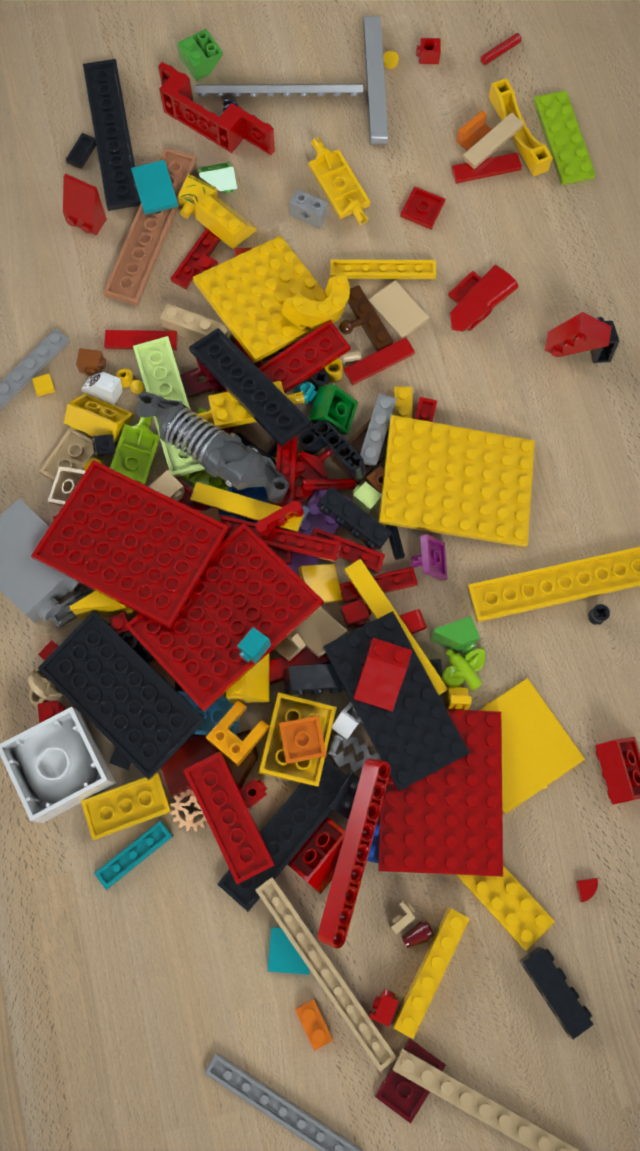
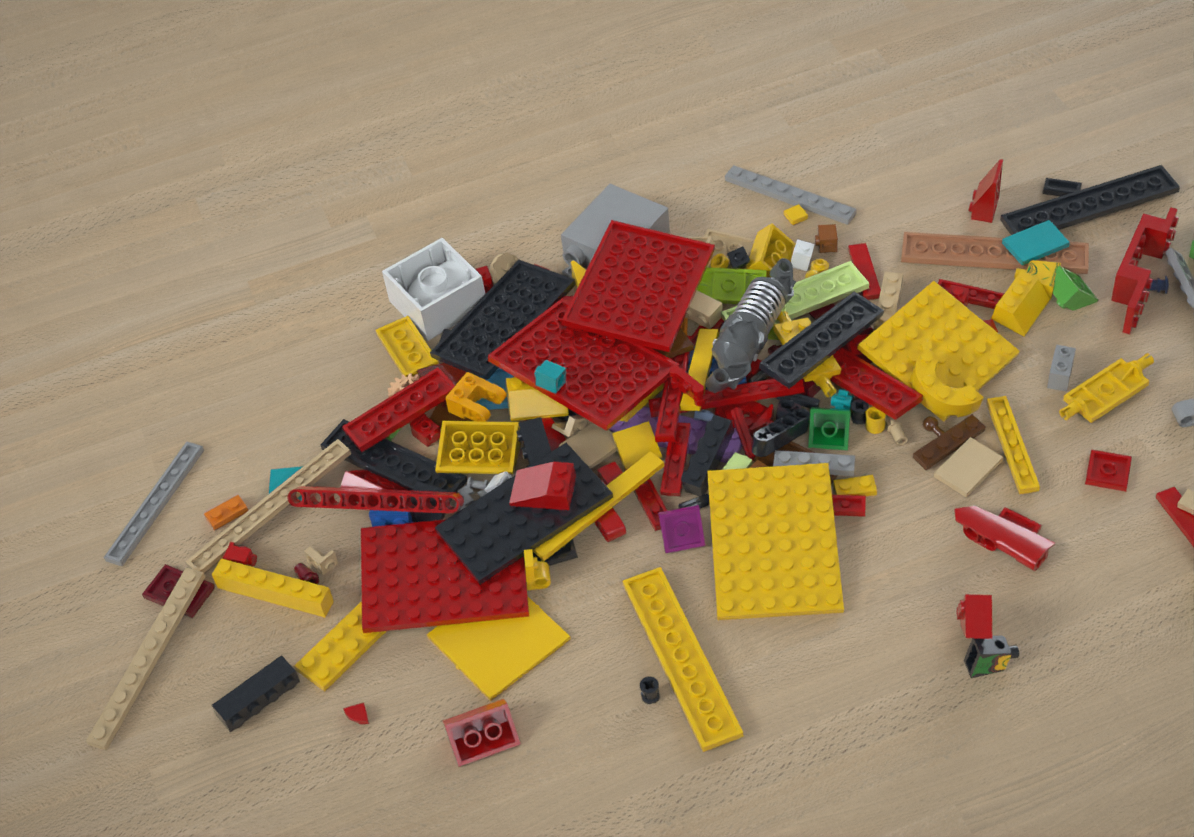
camera: 90 degrees right, 25 degrees down
(133, 855) = (366, 363): teal tile -> none
(302, 739) = (475, 444): orange plate -> none
(379, 361) = (900, 460): red tile -> none
(457, 635) = (601, 560): bright green slope -> none
(464, 668) = (569, 578): lime plant -> none

